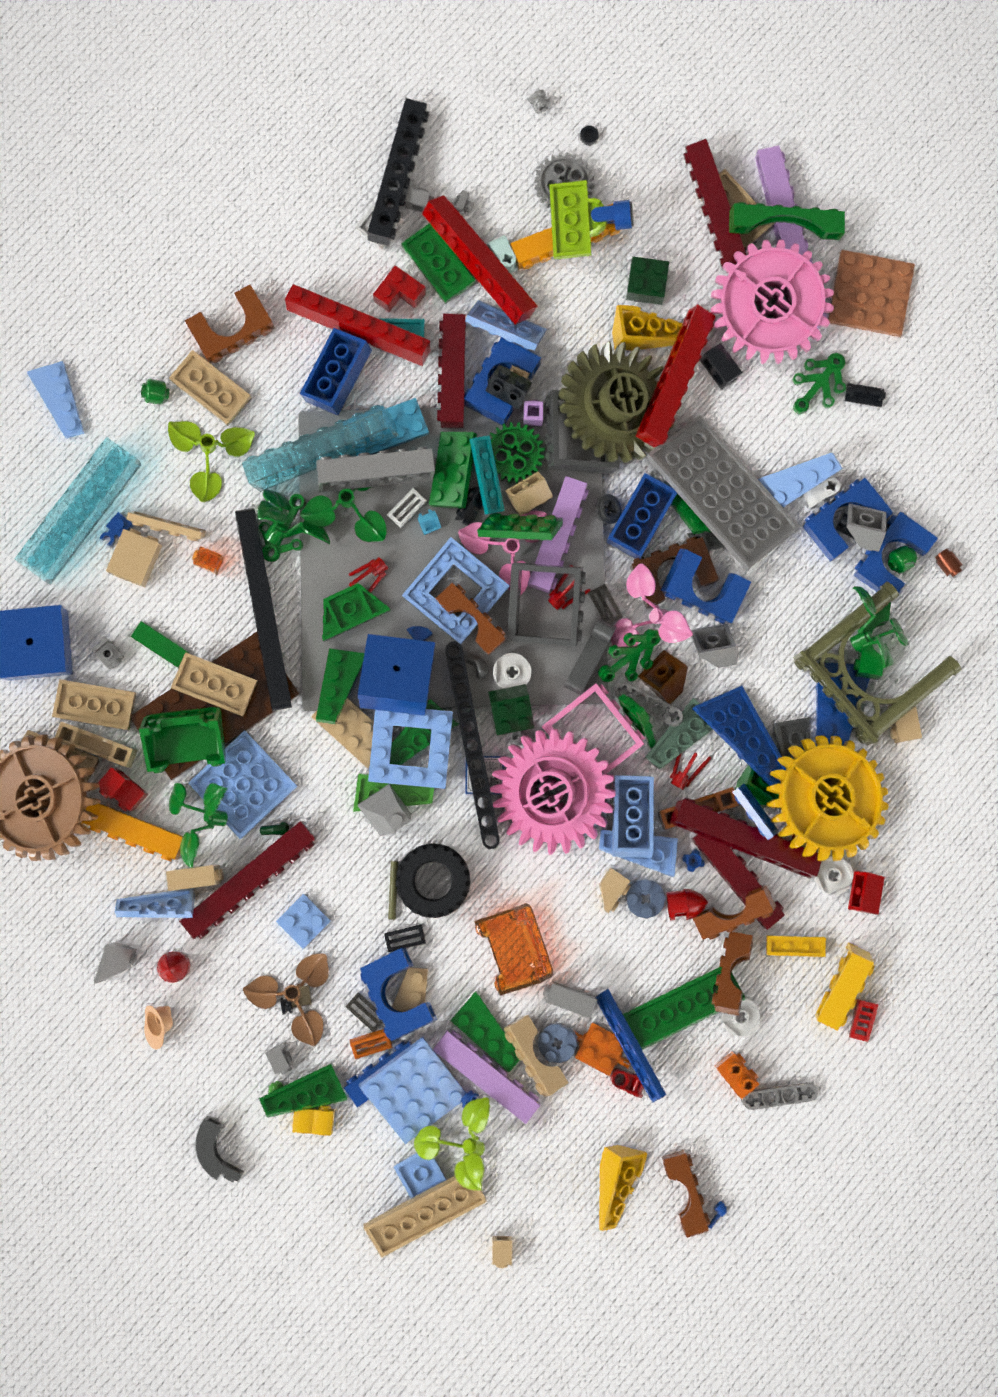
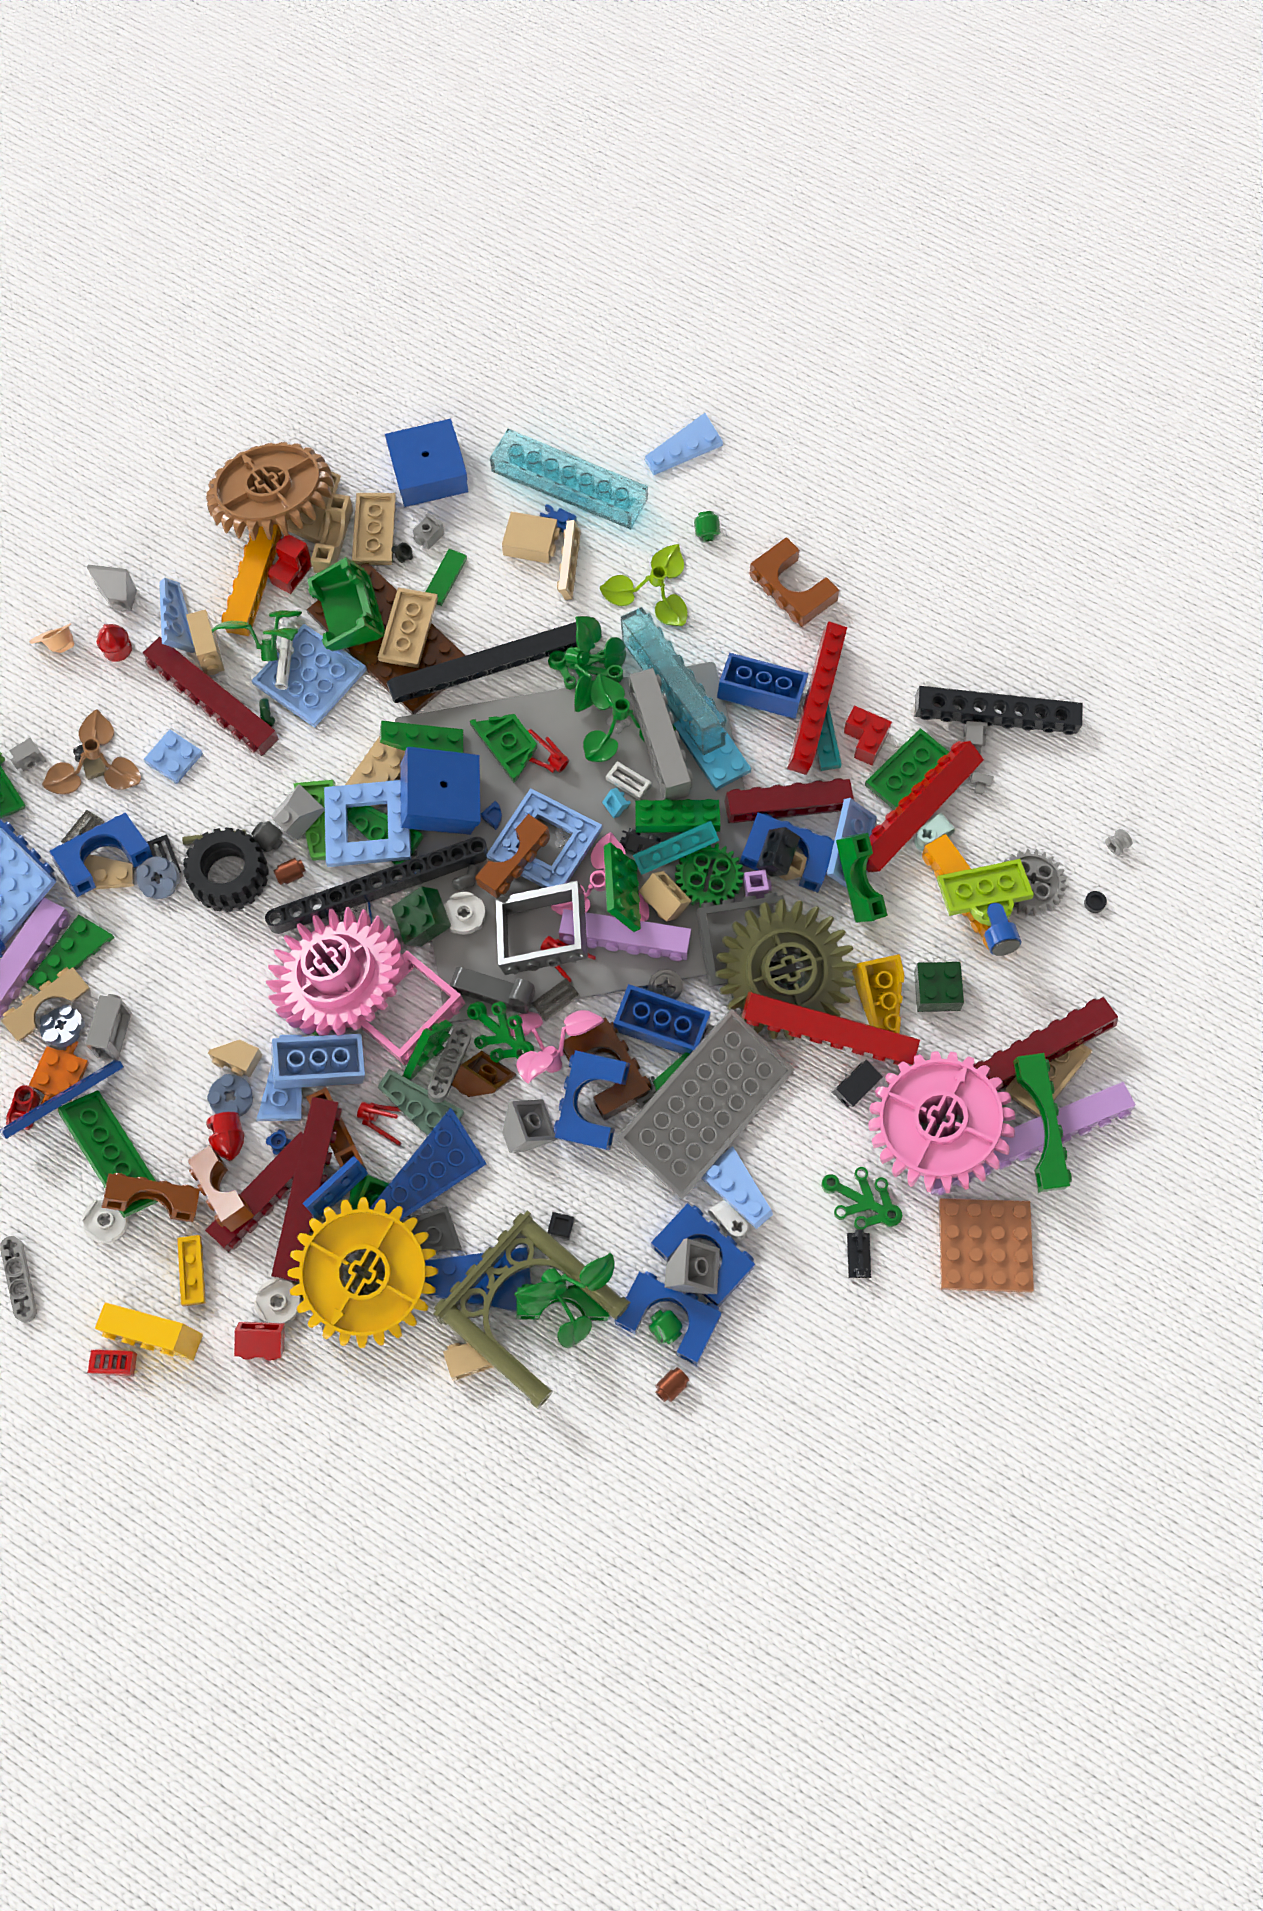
camera: 85 degrees right, 15 degrees down
(126, 680) = (402, 552): none -> pearl dark grey plate
(207, 560) = (539, 603): clear orange brick -> none
(210, 387) = (722, 576): tan plate -> none
(231, 805) = (285, 651): none -> white pin
(370, 1040) = (51, 837): orange tile -> none
(404, 840) = (267, 836): none -> dark grey head
(420, 937) = (146, 874): none -> sand blue plate
(441, 824) = (289, 871): none -> copper brick
(516, 948) = (162, 970): clear orange windscreen -> none
(564, 323) = (865, 901): none -> green arch
(737, 1075) = (38, 1225): orange brick -> none
(802, 632) = (561, 1225): none -> black tile

